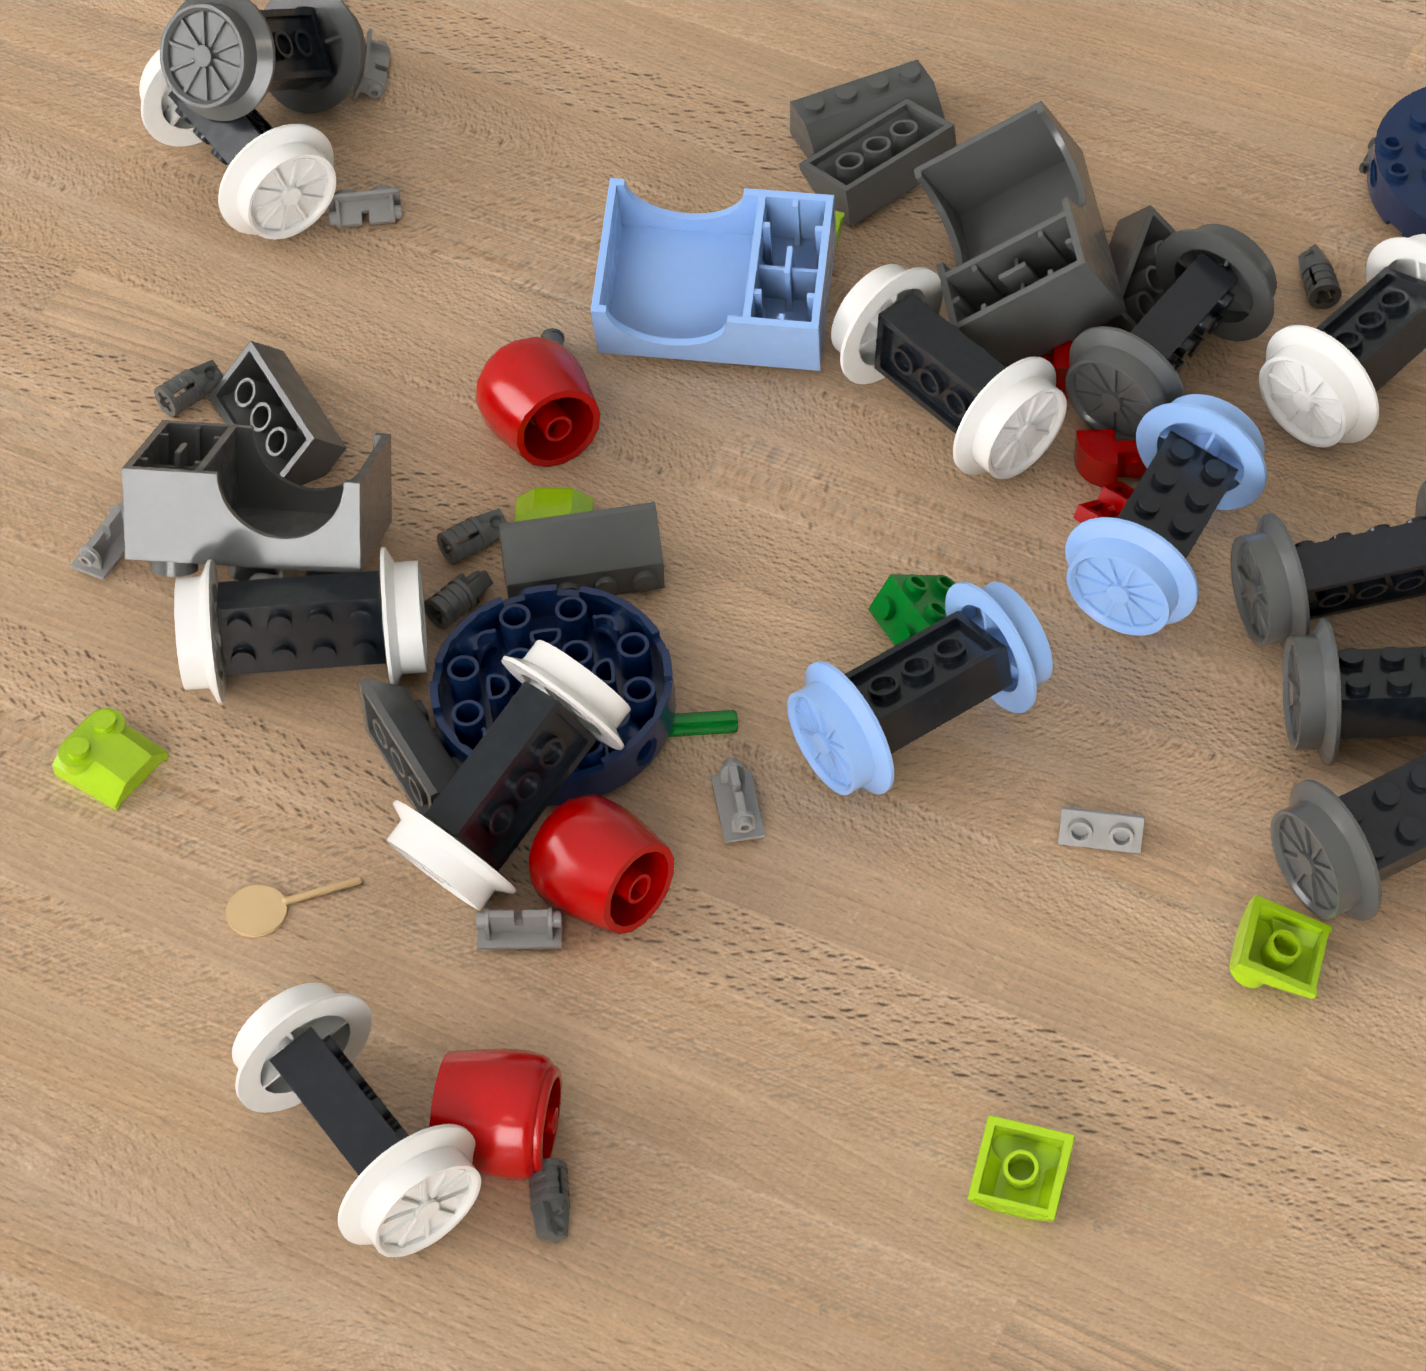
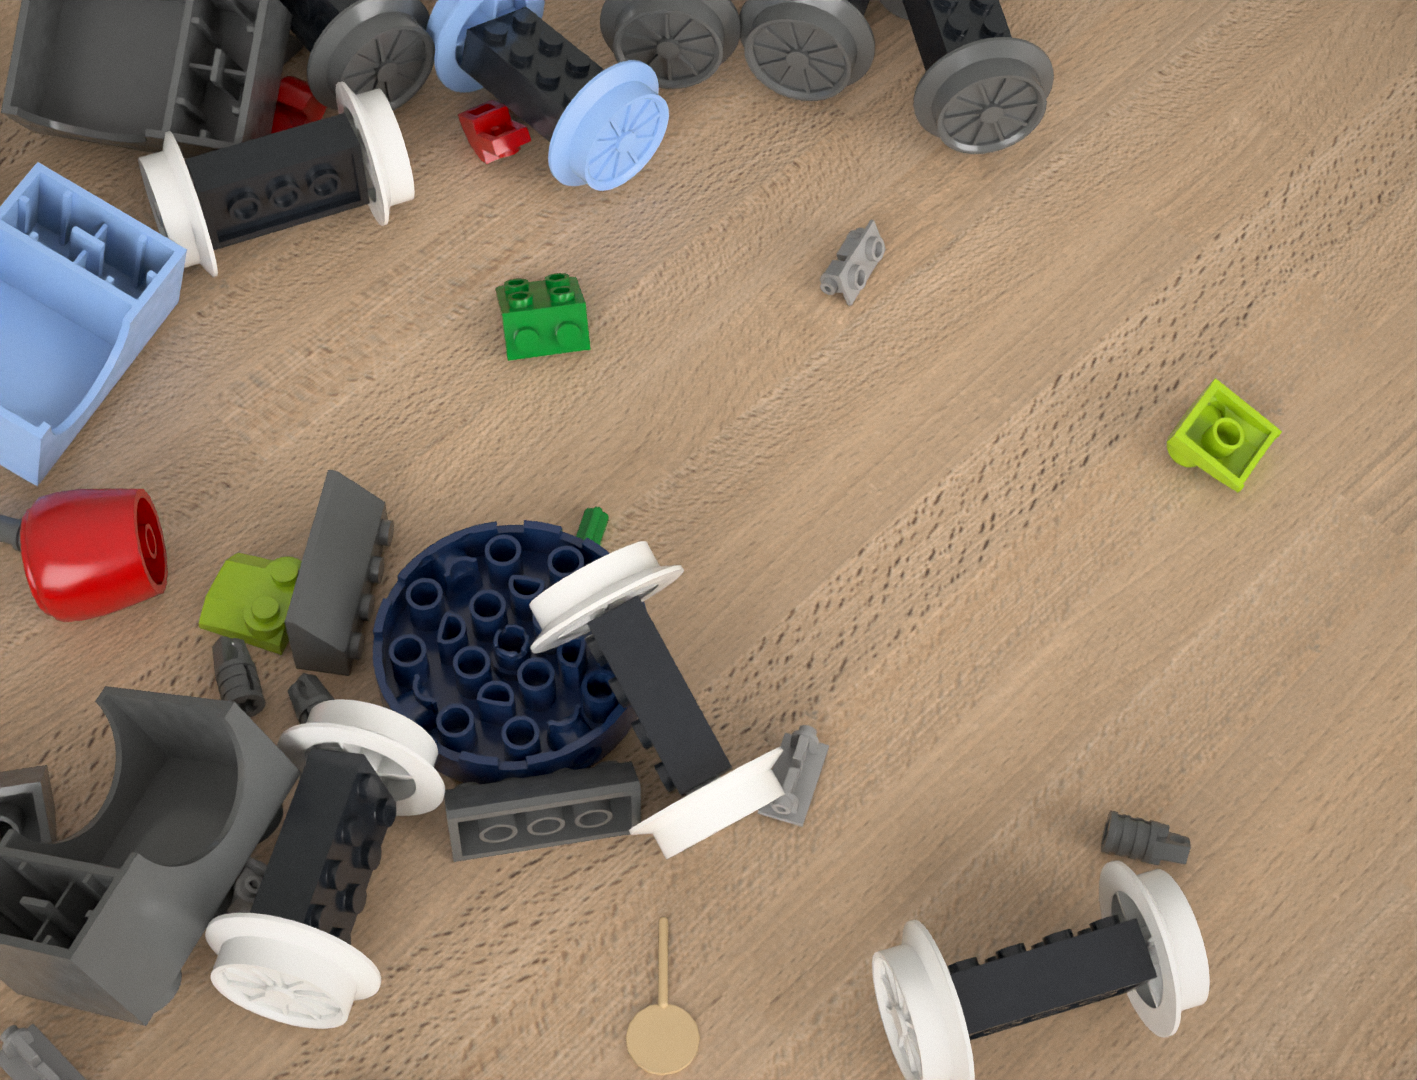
camera: 75 degrees left, 5 degrees up
(506, 1104) = (1049, 847): red piece -> none
(600, 864) = (762, 668): red piece -> none
(737, 802) = (709, 539): light grey hinge -> none
(977, 652) = (693, 389): brick -> none
(1104, 459) = (424, 115): red brick -> none
(1278, 948) = (1041, 182): lime slope -> none

